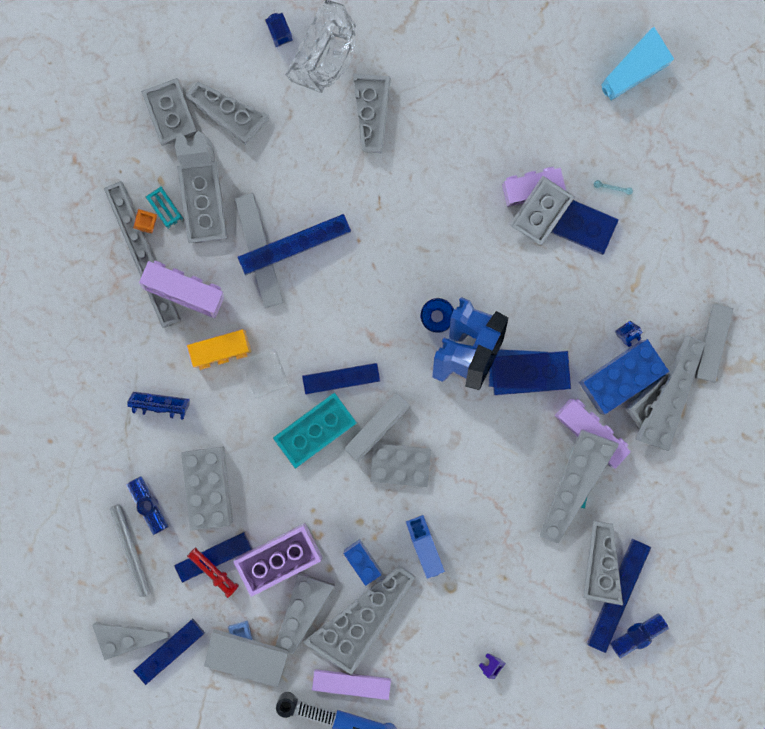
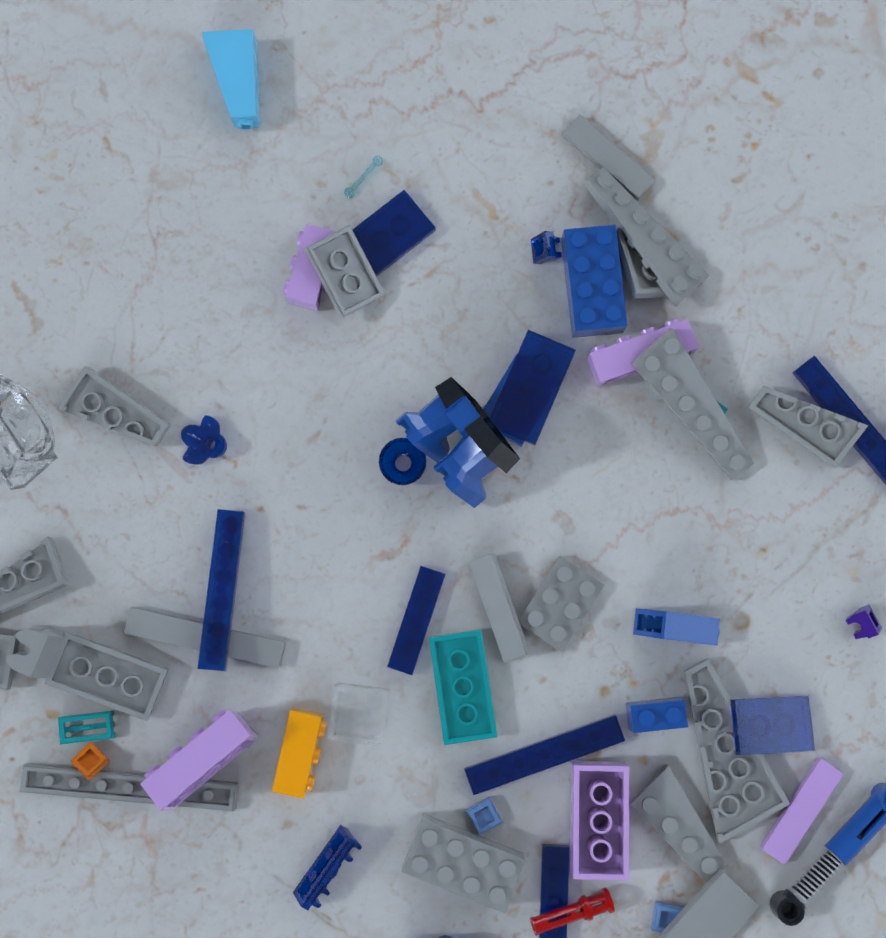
camera: 55 degrees left, 5 degrees down
(242, 486) = (484, 815): none -> medium blue tile
(300, 504) = (544, 754): none -> clear blue plate
(382, 177) = (200, 439): none -> clear blue plate
(395, 639) = (772, 725): none -> clear blue tile

